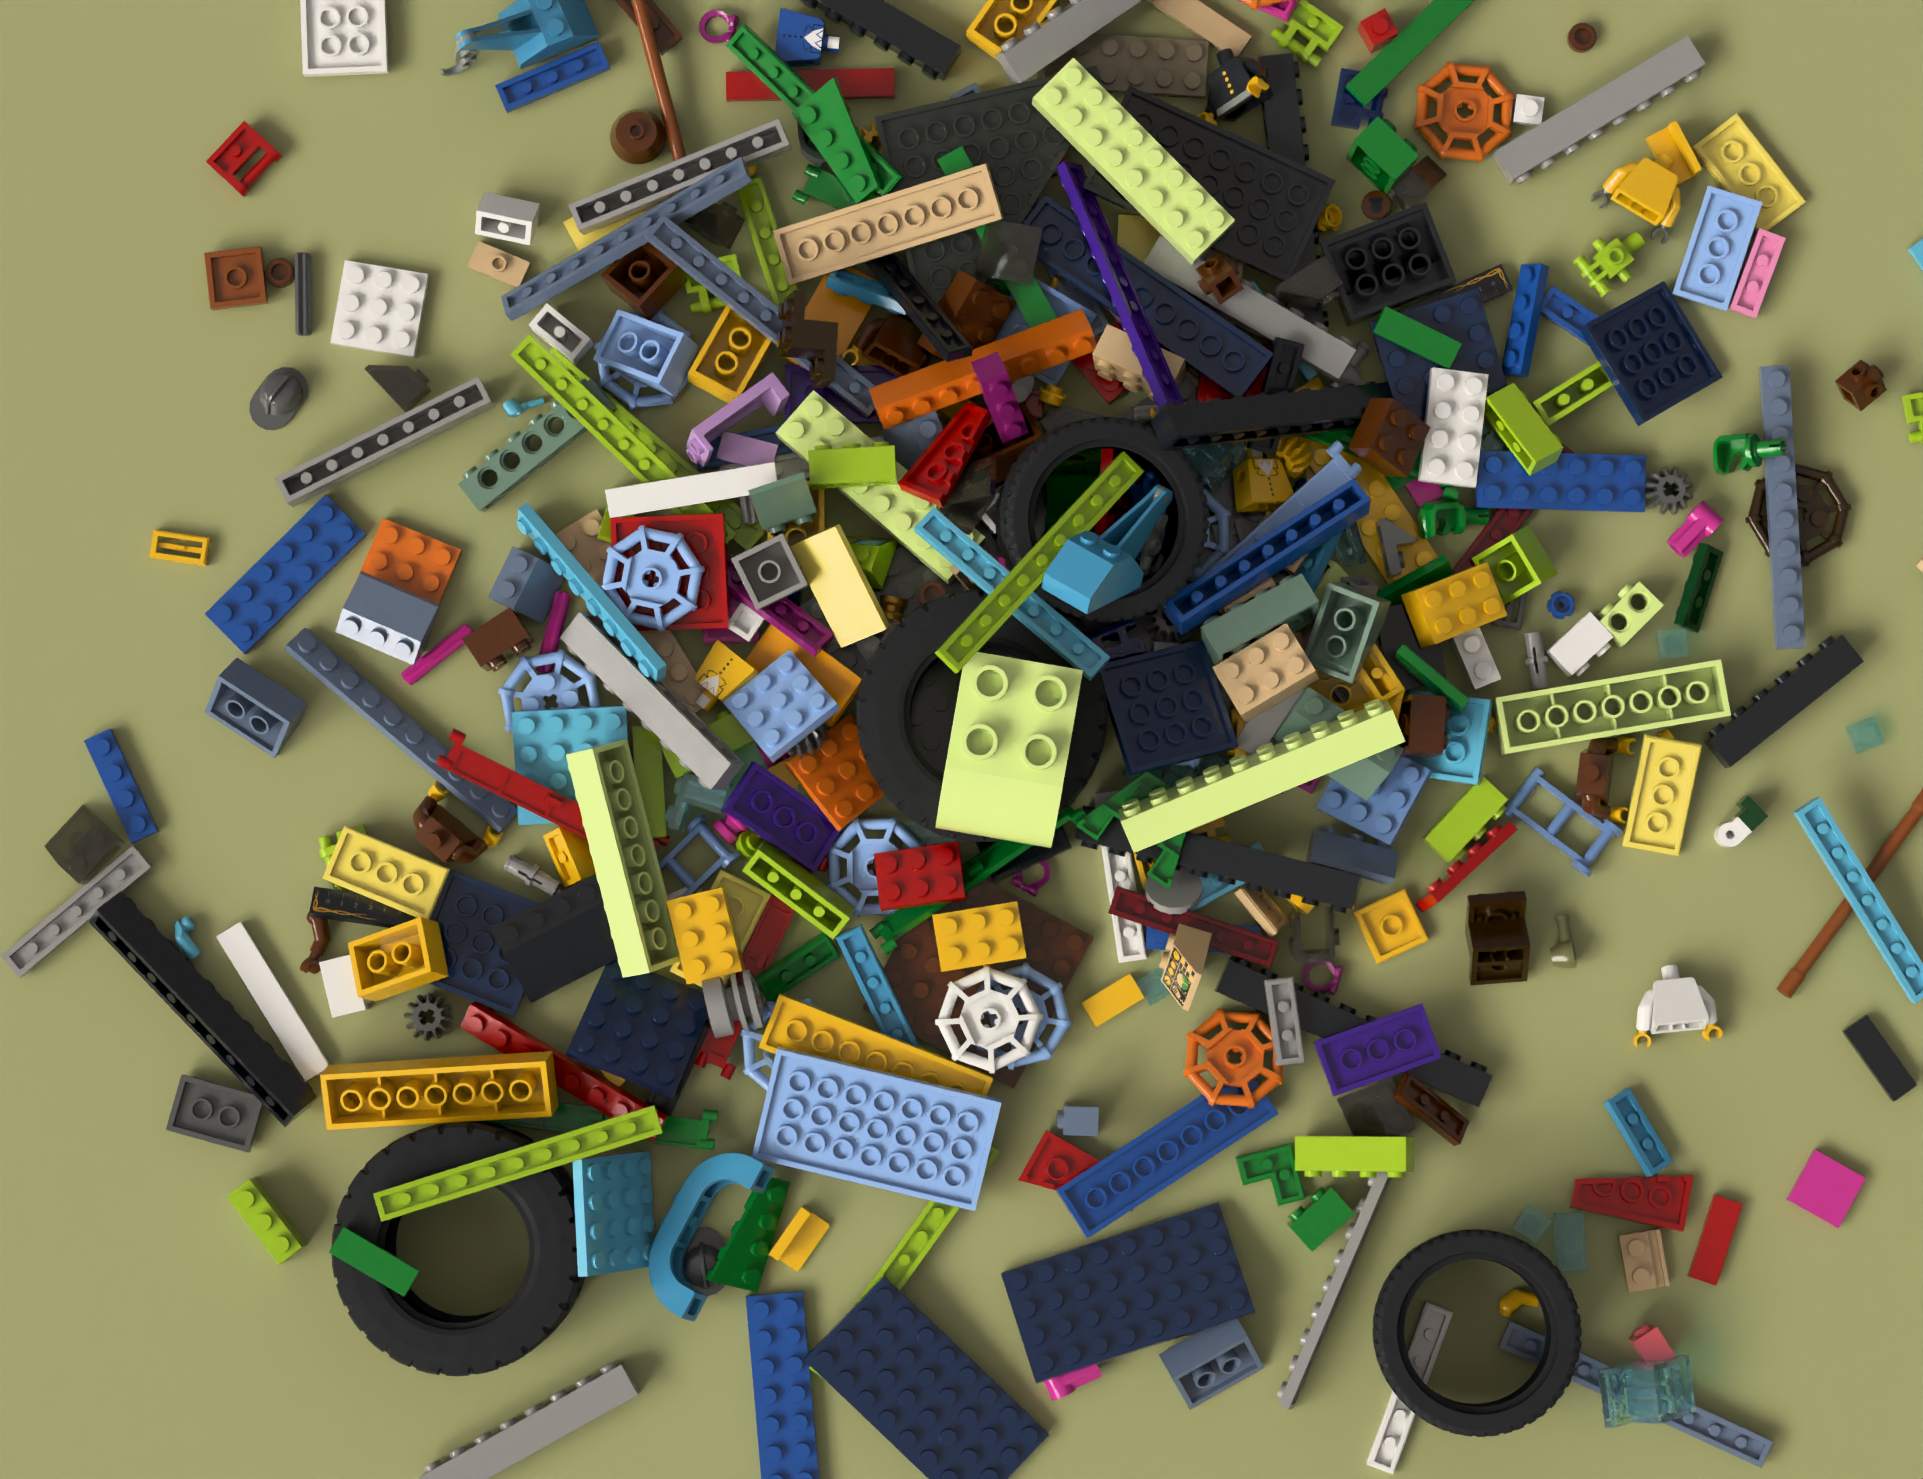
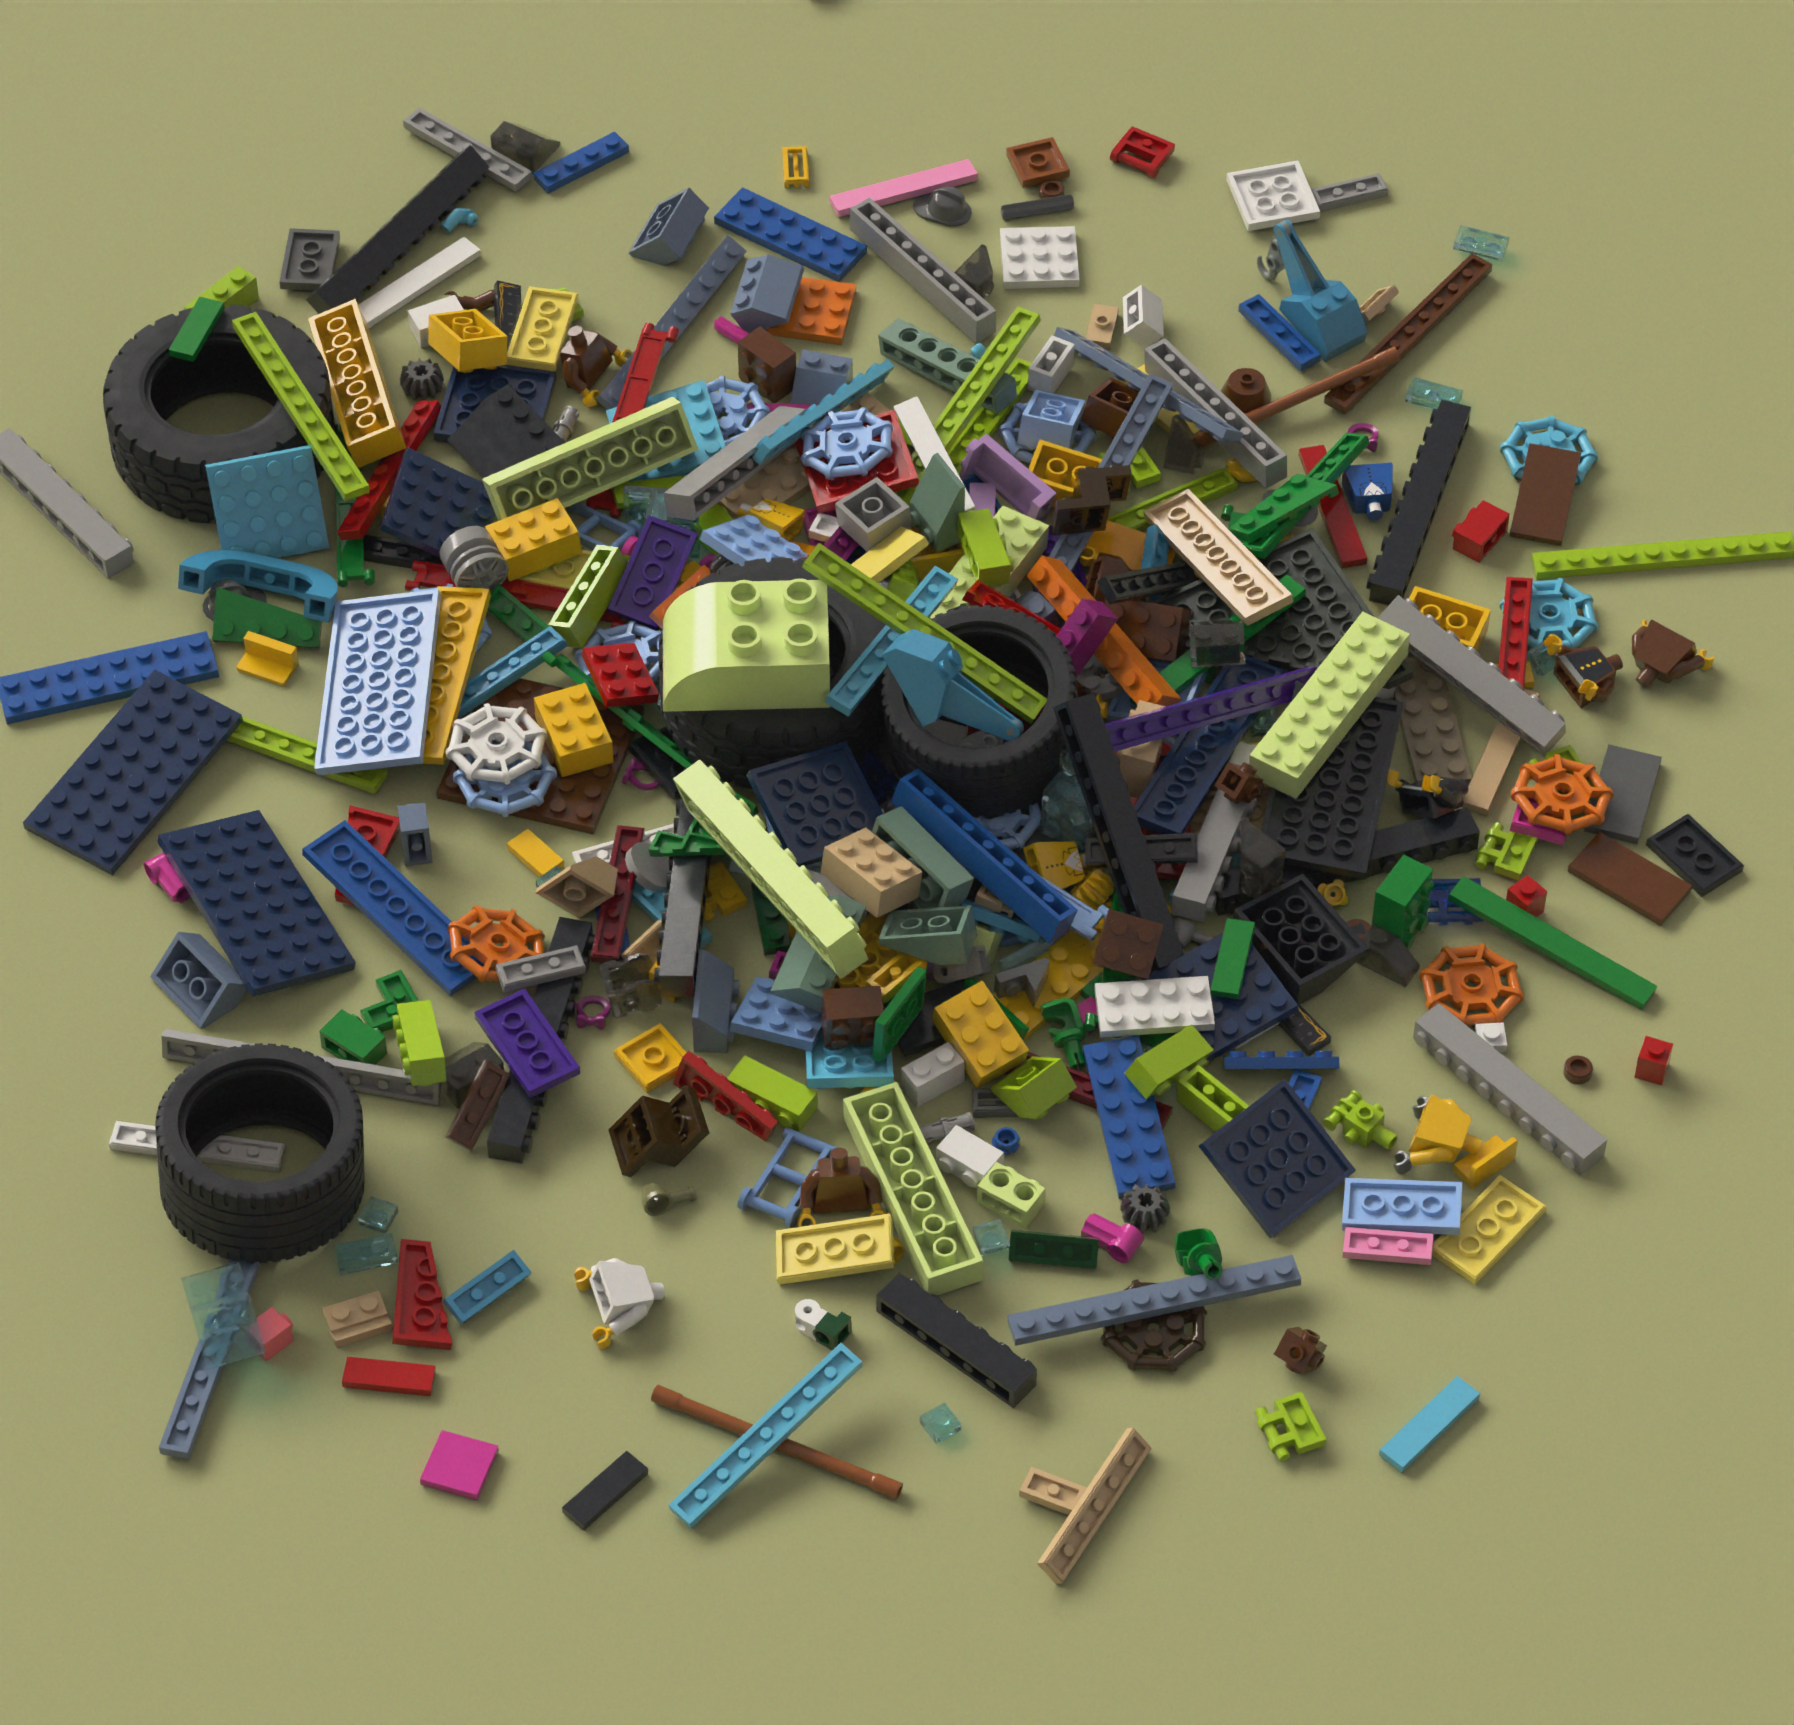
camera: 75 degrees right, 35 degrees down
(241, 435) = (906, 186): none -> bright pink tile

